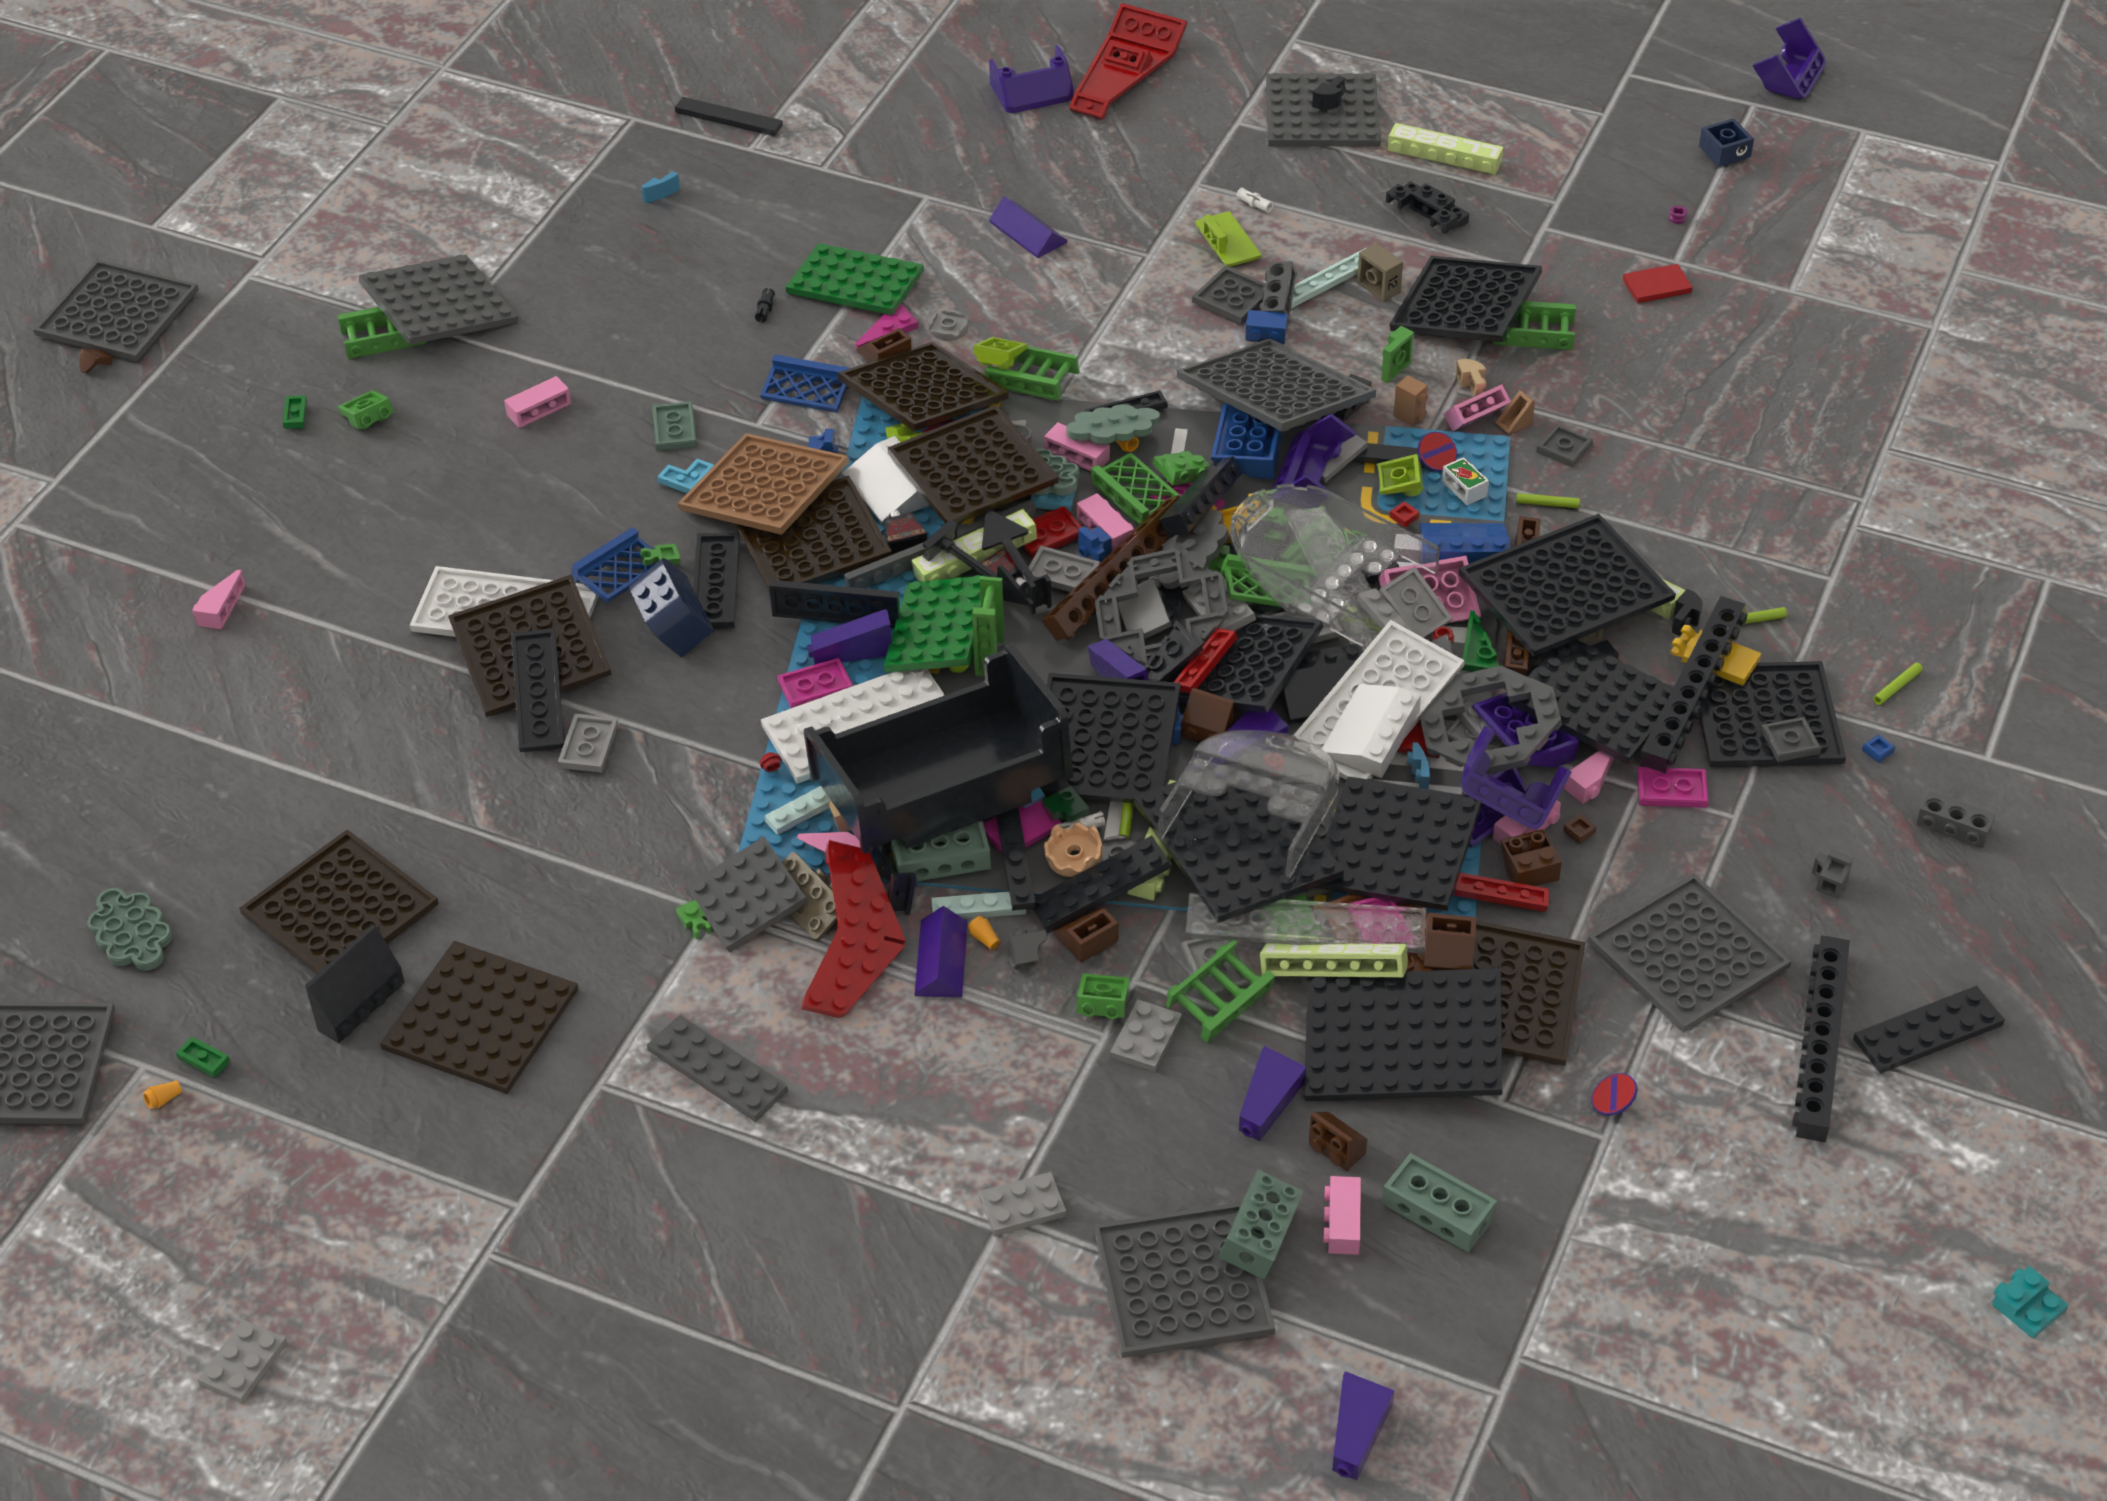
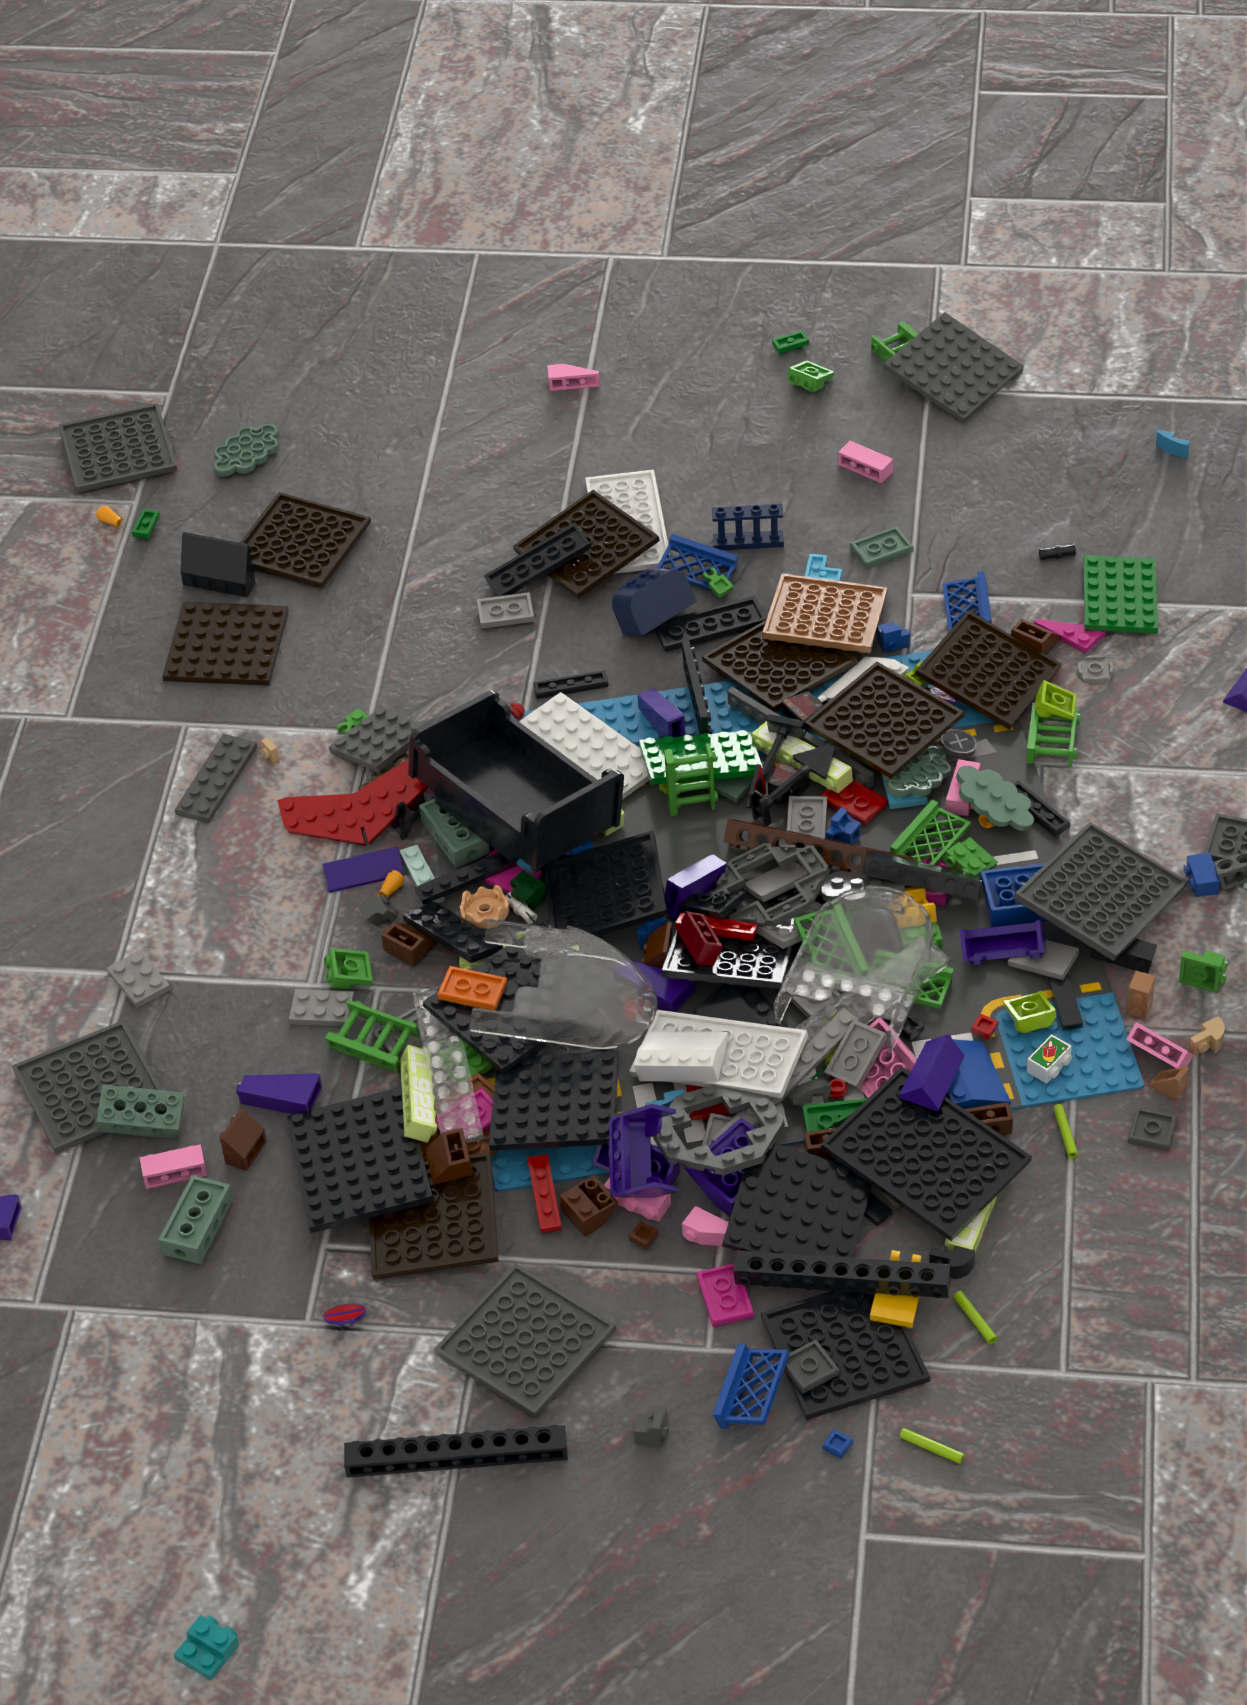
camera: 75 degrees right, 0 degrees up
(91, 357) = (797, 223): reddish brown tile -> none
(116, 310) = (857, 214): dark grey plate -> none
(594, 507) = (748, 540): none -> dark blue fence
(704, 1002) = (269, 750): none -> tan plate
(740, 716) = (570, 684): none -> black tile
(814, 682) = (616, 711): dark pink tile -> none
(1097, 512) = (877, 827): bright pink brick -> none
(1221, 867) = (472, 988): none -> orange tile
(1236, 666) = (700, 938): none -> dark red brick
(1436, 450) = (1079, 1029): red piece -> none
(1478, 548) = (933, 1073): none -> dark purple slope
(1800, 803) = (735, 1385): none -> blue fence
(1928, 1029) = (496, 1533): black plate -> none
(1956, 819) = (763, 1523): dark grey brick -> none

